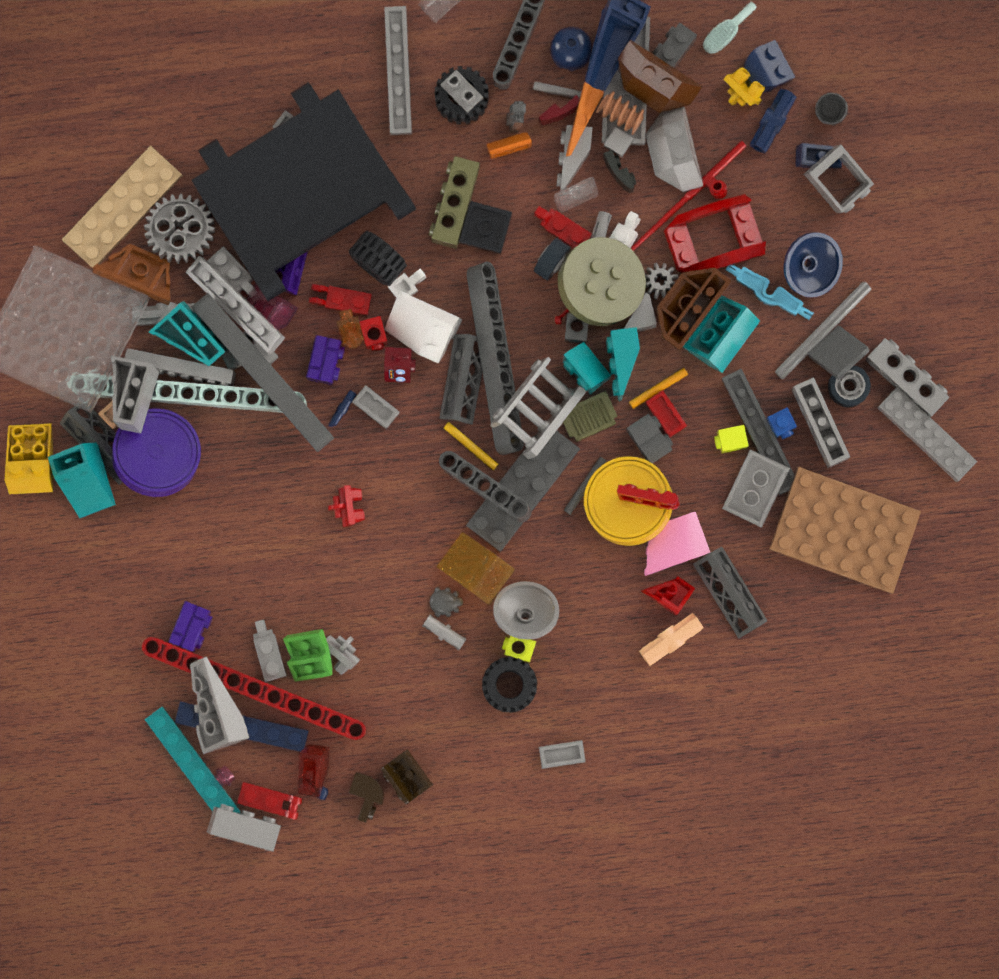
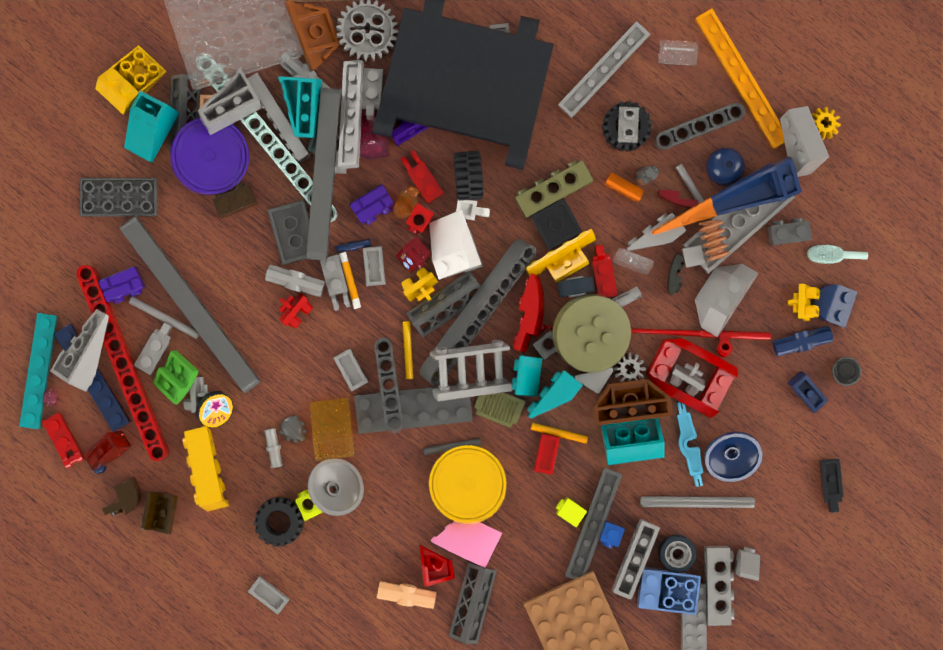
camera: 50 degrees right, 5 degrees up
(115, 561) = (119, 197): none -> dark grey tile
(212, 468) = (234, 201): none -> dark brown brick
(244, 827) = (28, 442): light grey brick -> none
(250, 619) = (163, 317): none -> light grey bar
(260, 587) = (190, 304): none -> dark grey beam
(282, 447) = (291, 230): none -> dark grey tile
(325, 482) = (295, 280): none -> light grey piece
(356, 450) = (335, 280): none -> light grey hinge
(366, 648) = (214, 409): none -> tile
(368, 438) = (350, 281): none -> light orange bar
(407, 703) = (204, 469): none -> yellow wedge
(431, 385) = (422, 287): none -> yellow hips
(442, 507) = (350, 369): none -> light grey plate
(521, 248) = (565, 259): none -> yellow bracket
(534, 310) = (533, 305): none -> red slope
(626, 233) = (638, 317): white plate -> none
(648, 497) = (481, 498): red hinge -> none
(649, 439) = (520, 459): dark grey brick -> none
(655, 80) = (755, 240): reddish brown wedge -> none
(705, 243) = (690, 375): none -> light grey hips
(756, 488) = (554, 557): light grey tile -> none
(826, 161) = (807, 401): light grey window -> none
(838, 352) = (692, 526): dark grey tile -> none
(873, 421) = (668, 591): none -> medium blue slope
(911, 207) = (831, 483): none -> black hinge
(911, 336) = (747, 563): none -> light grey slope

